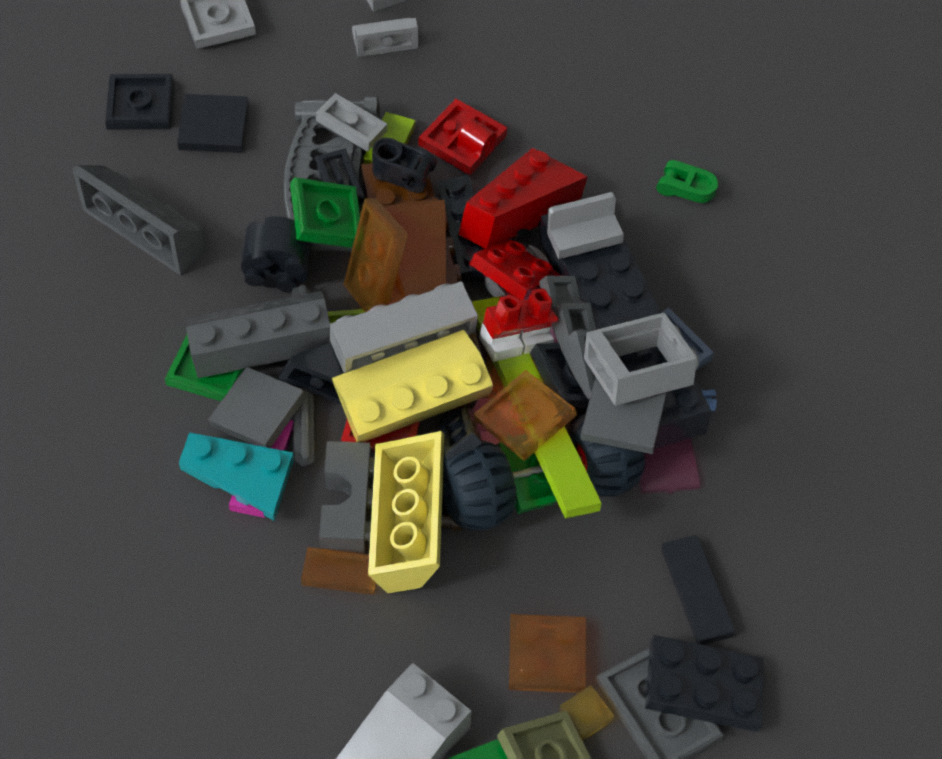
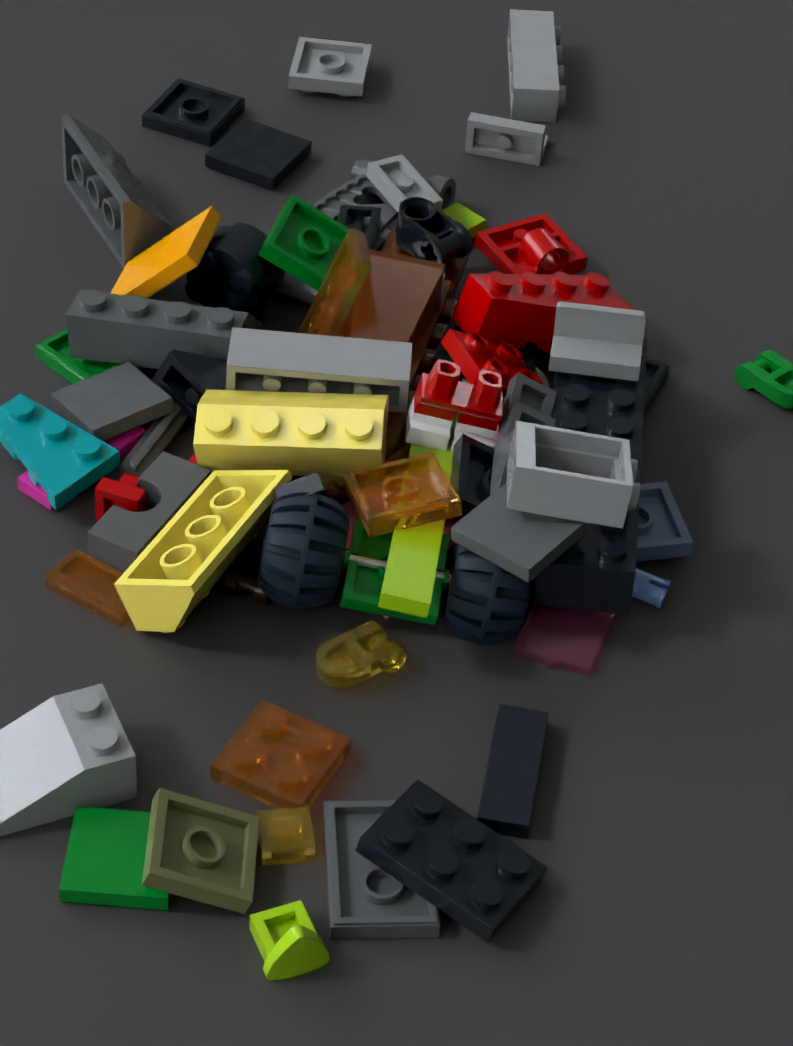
camera: 25 degrees right, 15 degrees down
(224, 269) = (169, 257): none -> light orange tile
(317, 492) = (120, 493): none -> red tile
(545, 557) = (358, 656): none -> clear yellow plate

